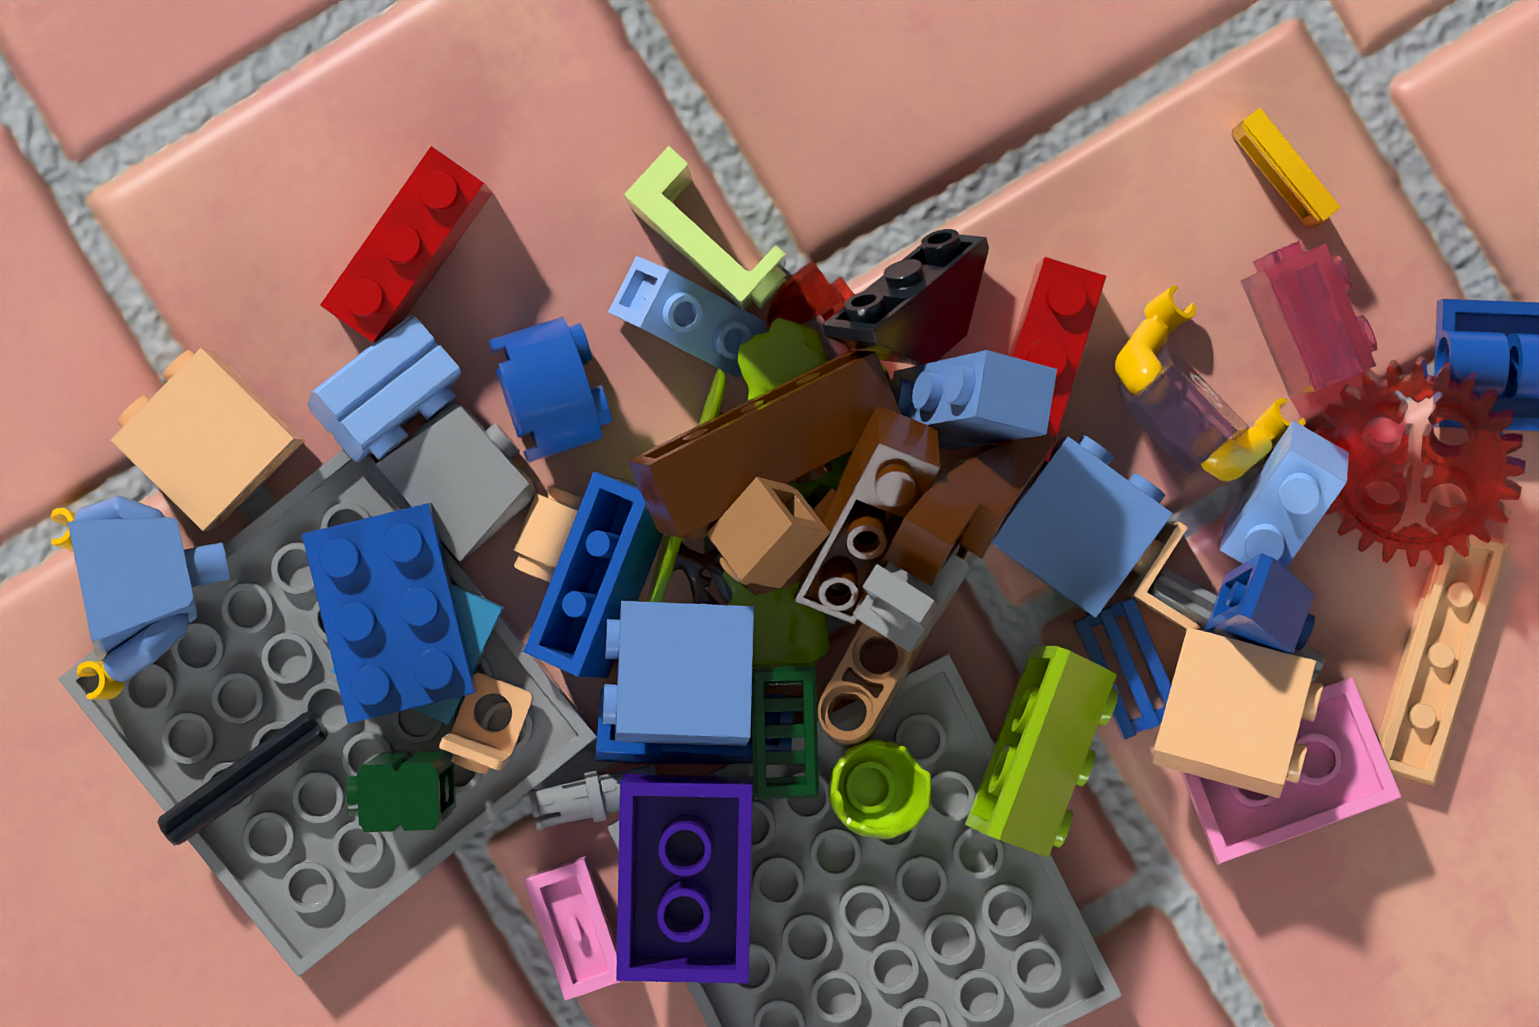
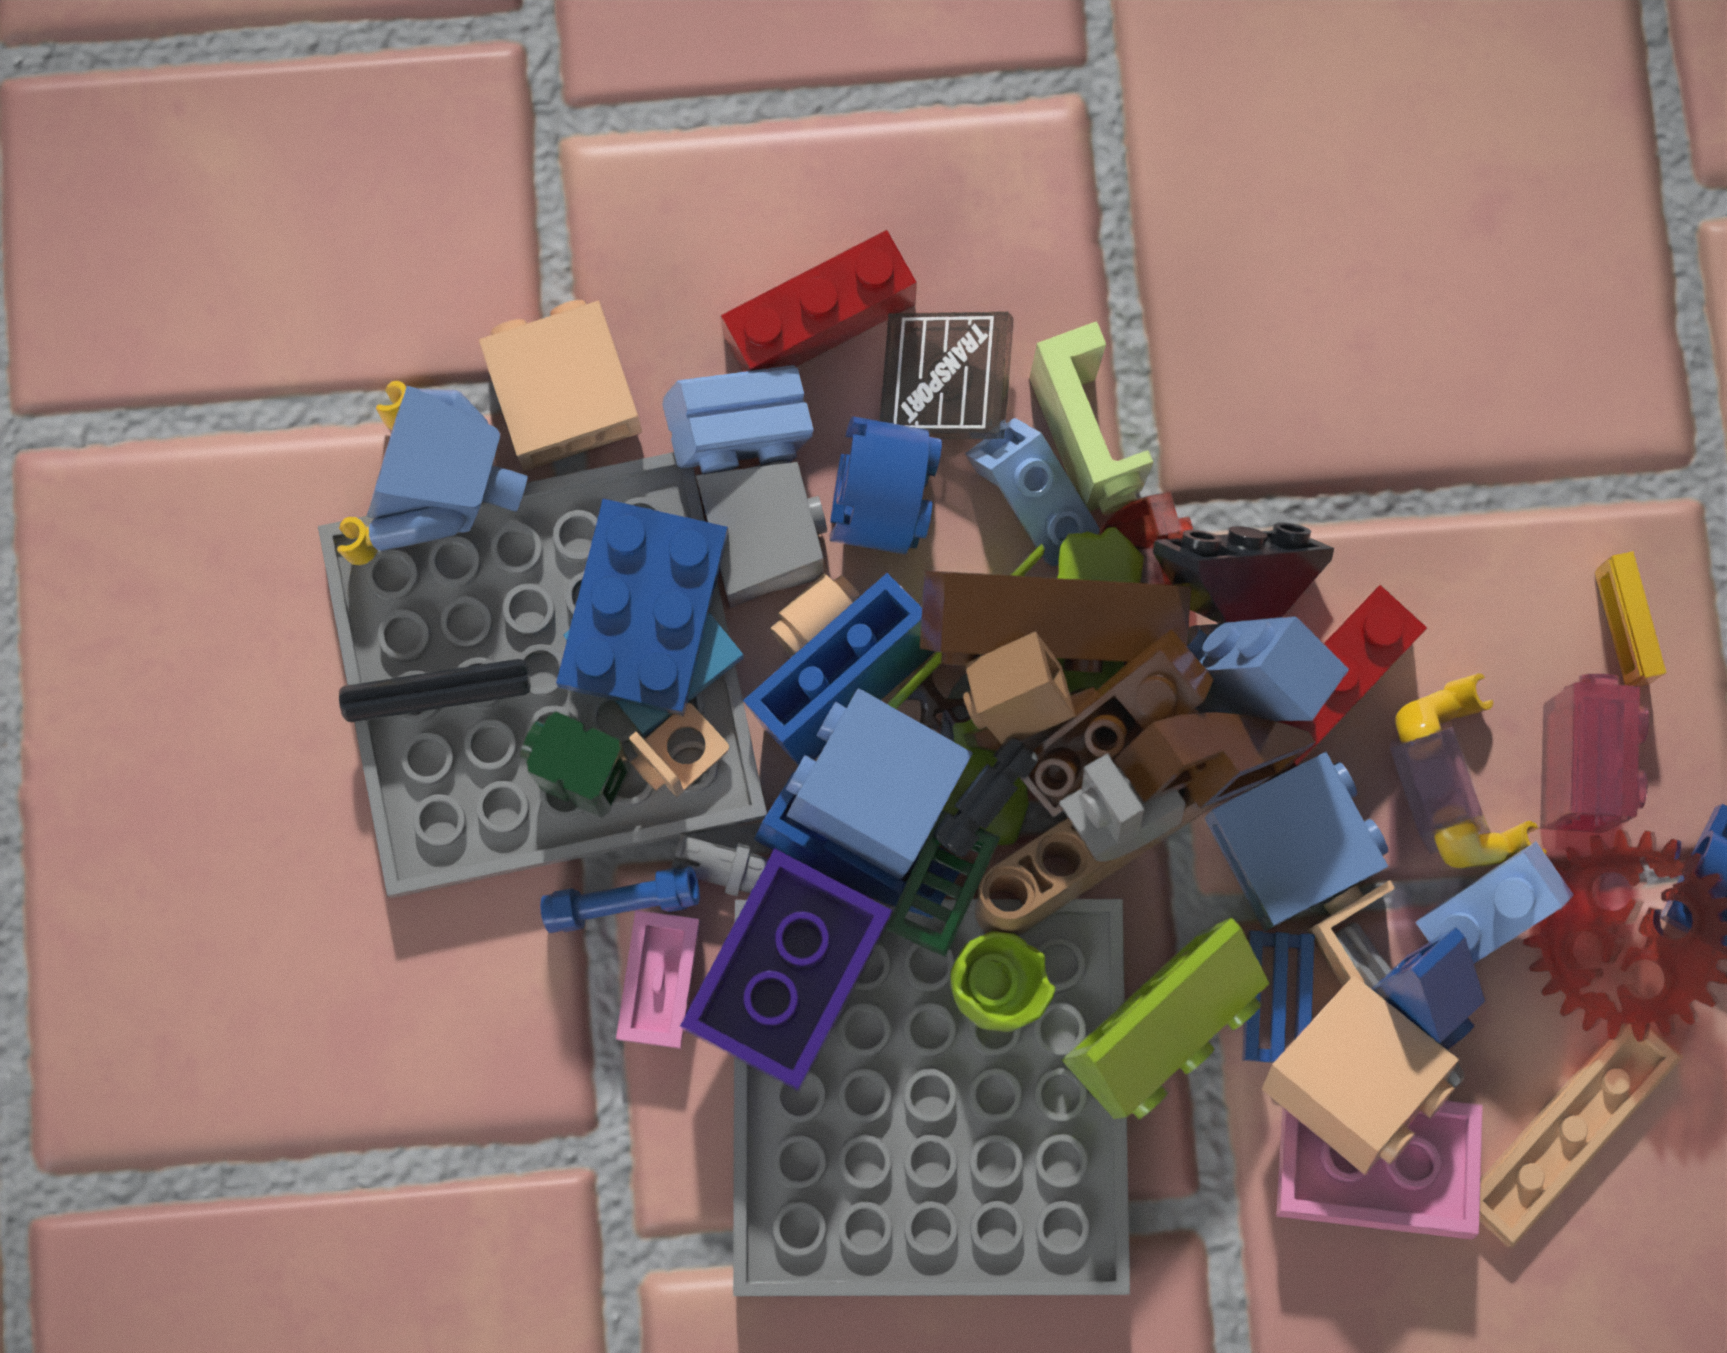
camera: 25 degrees right, 10 degrees down
(542, 851) = (671, 890): none -> blue bar
(555, 249) = (948, 373): none -> clear smoke tile
(785, 642) = (986, 796): none -> black axle

